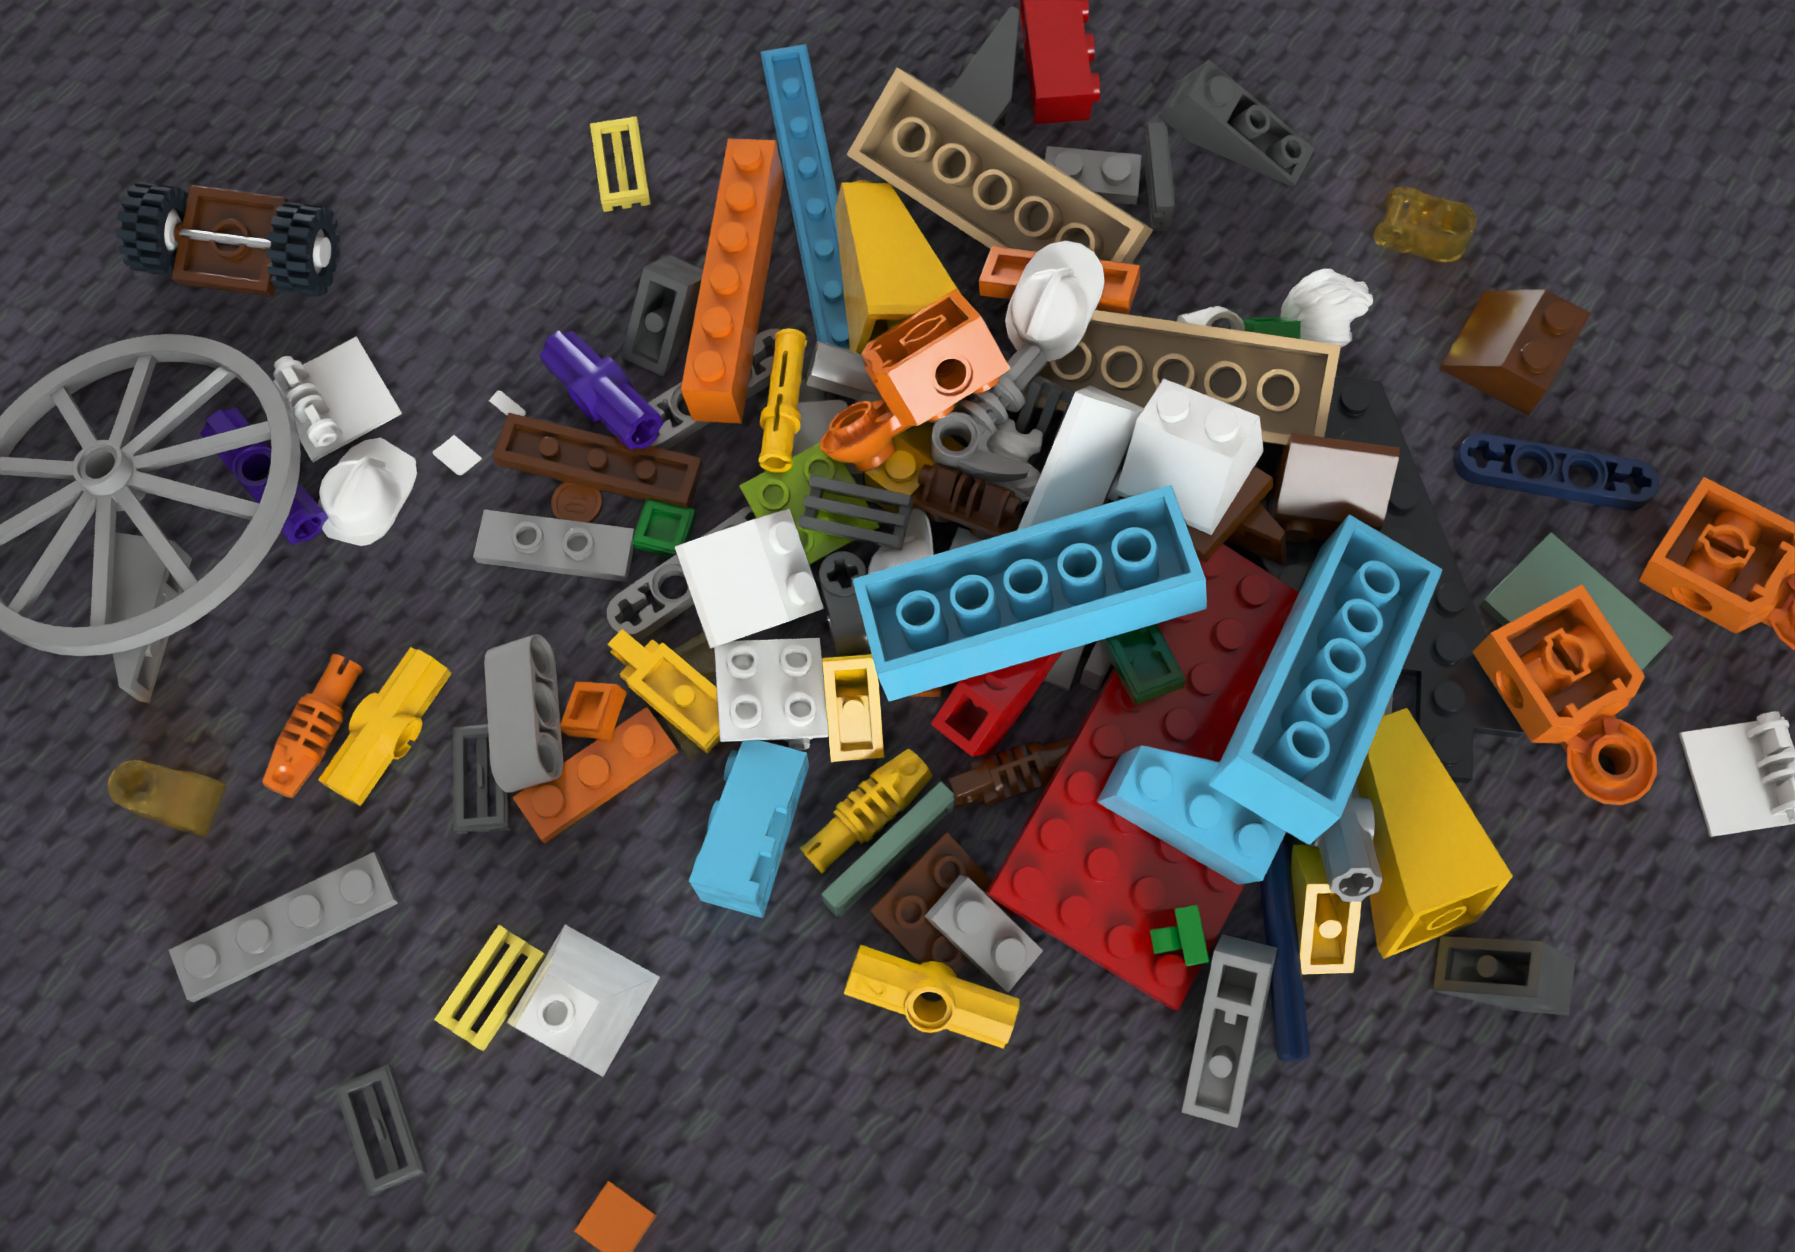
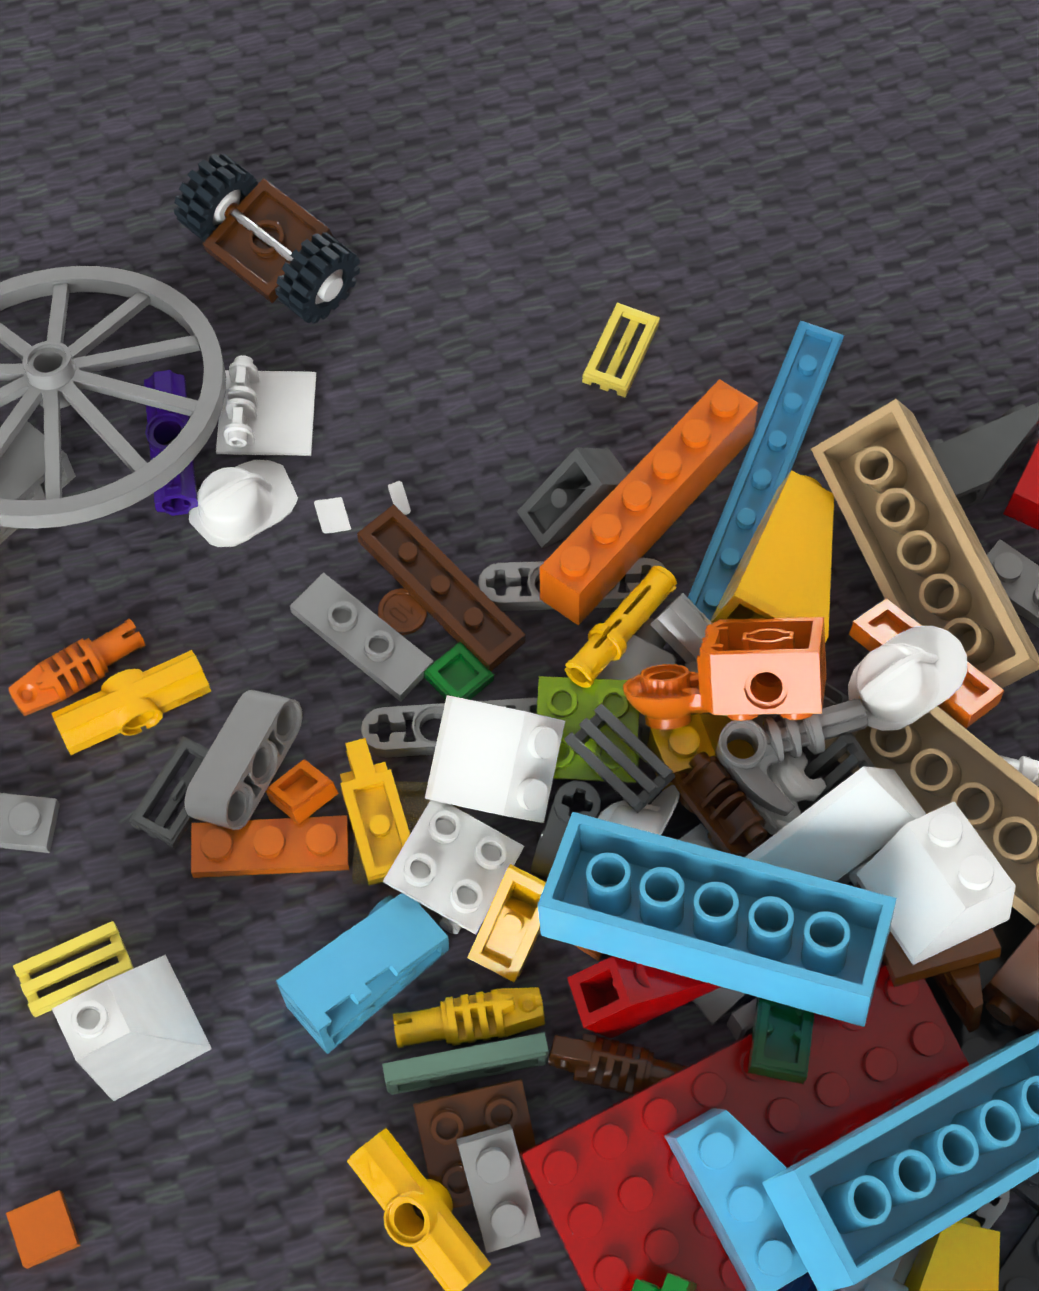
camera: 30 degrees right, 5 degrees down
(601, 390) = (479, 529): dark purple piece -> none

